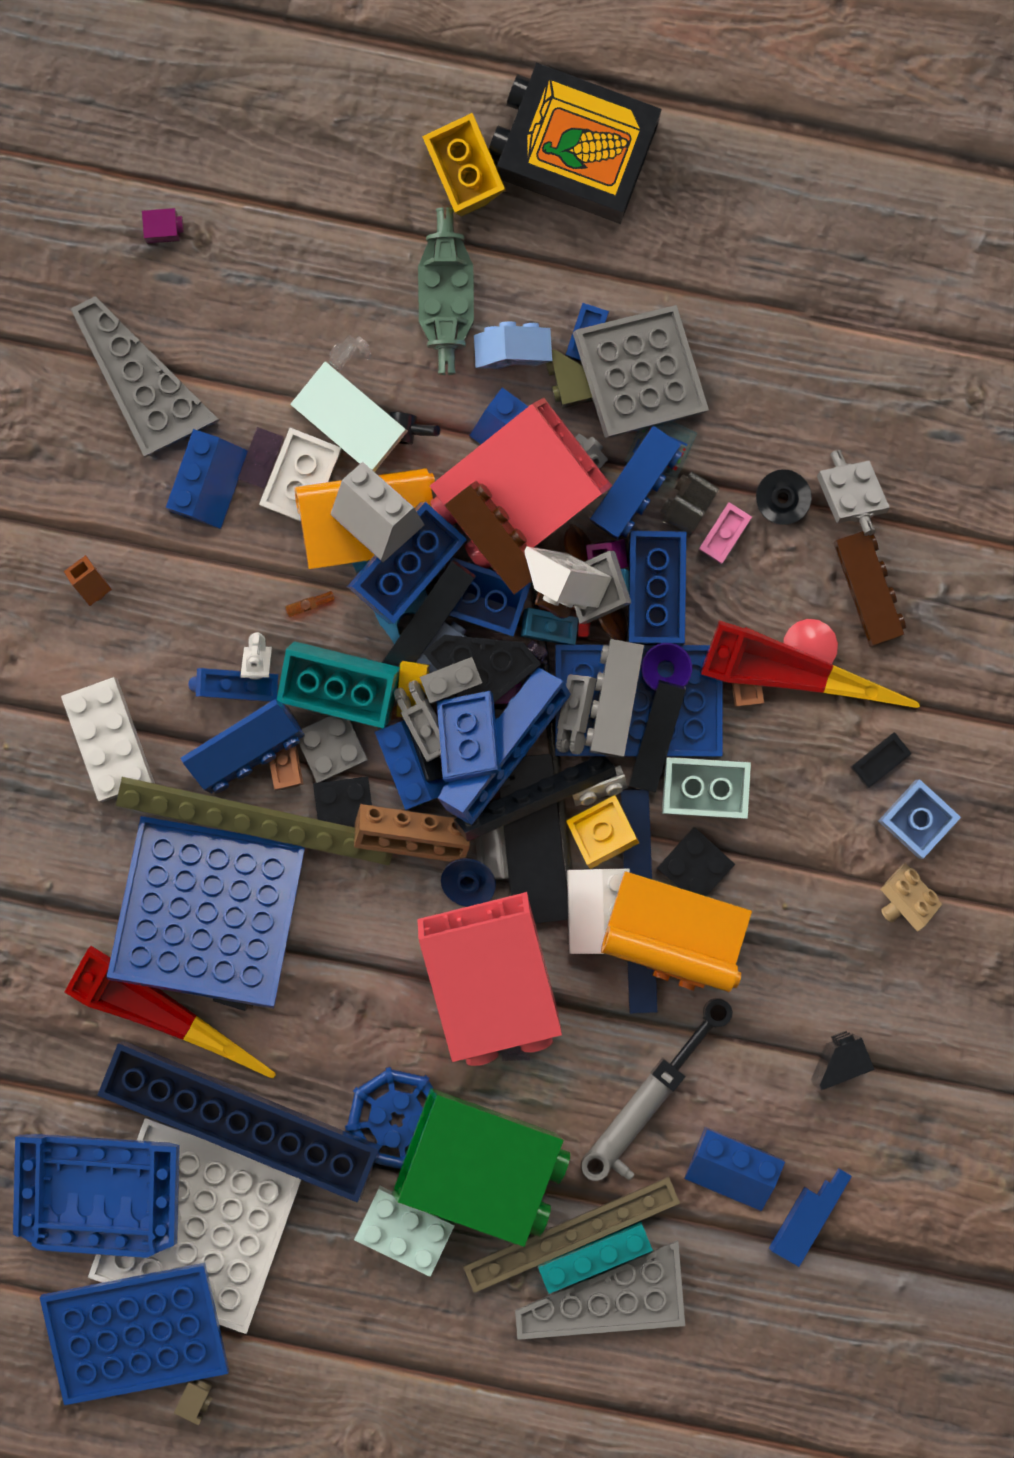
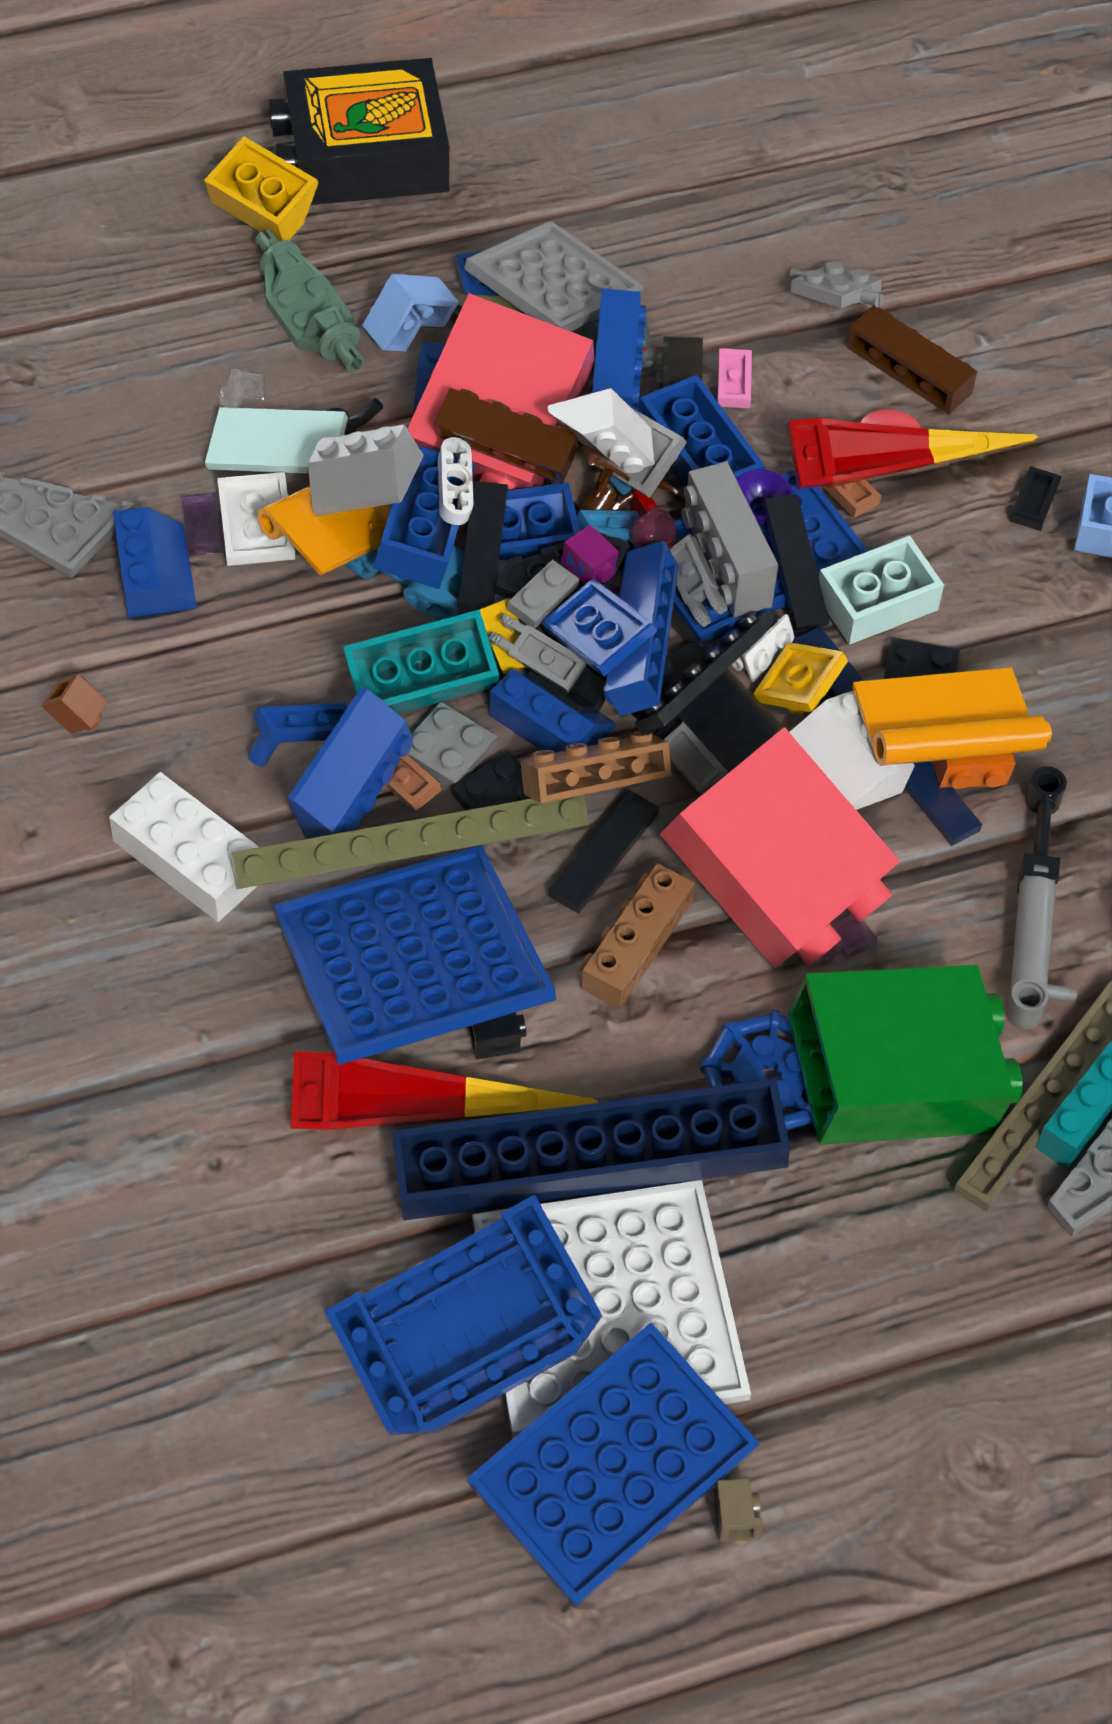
camera: 30 degrees left, 30 degrees down
(256, 658) = (311, 685): white hinge -> none
(295, 608) = (341, 624): clear orange pin -> none
(369, 972) = (637, 935): none -> medium nougat brick
(387, 890) = (603, 852): none -> black tile
(404, 1232) = (862, 1179): light aqua brick -> none
(434, 576) = (448, 491): none -> white beam
(464, 890) = (677, 776): dark blue dish -> none
(500, 671) = (590, 556): none -> magenta brick
(570, 656) = (653, 528): none -> clear pink cone
(788, 483) = (770, 322): black dish -> none

